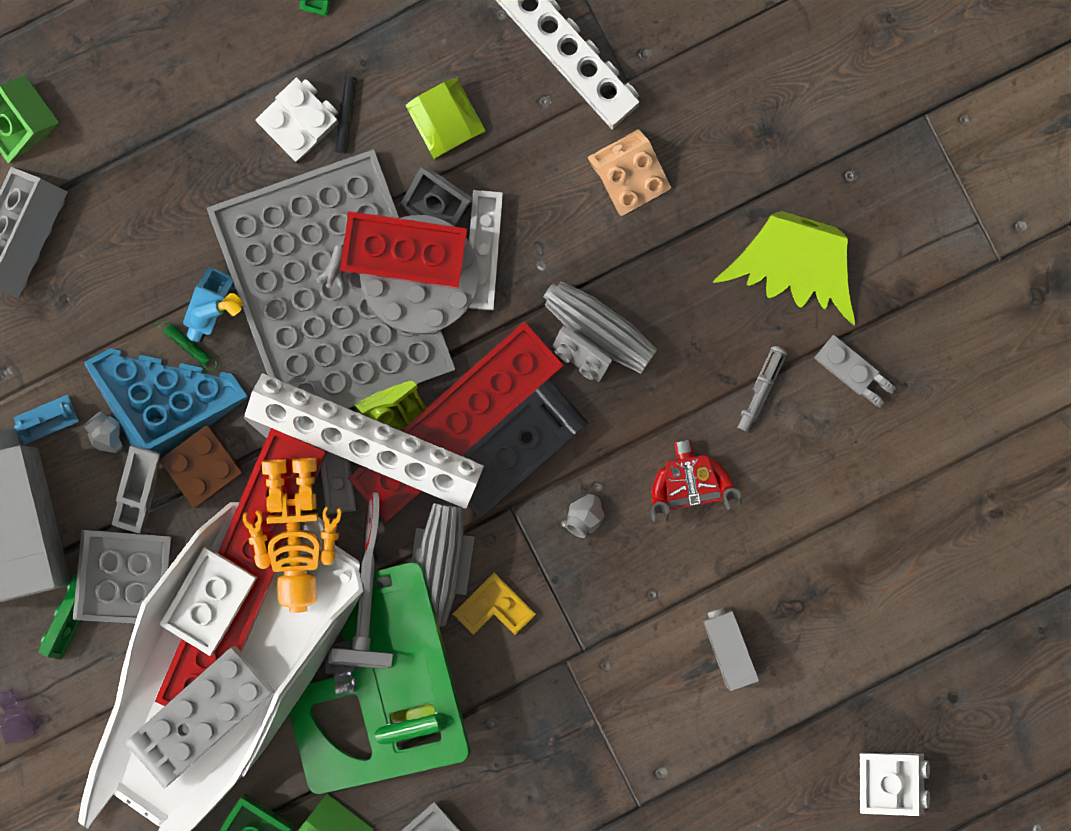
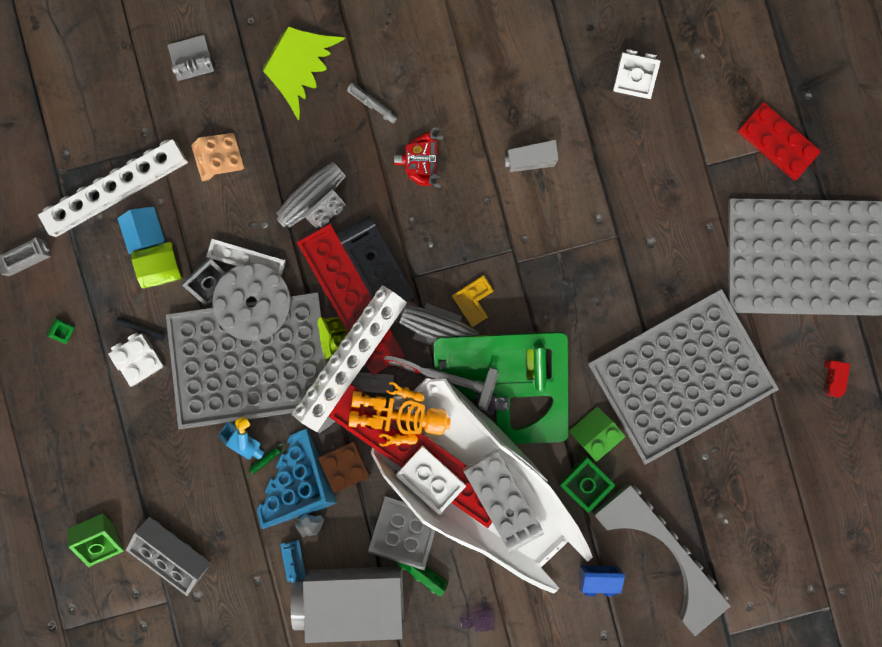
camera: 85 degrees left, 0 degrees up
(136, 489) = (349, 511): light grey slope -> none
(333, 269) = (236, 355): light grey bar -> none
(403, 249) = (232, 307): red plate -> none
(494, 82) = (141, 229): none -> dark azure slope
(584, 515) = (428, 230): light grey rock -> none
(771, 98) = (190, 58): none -> light grey hinge
(852, 369) = (372, 44): light grey hinge -> none

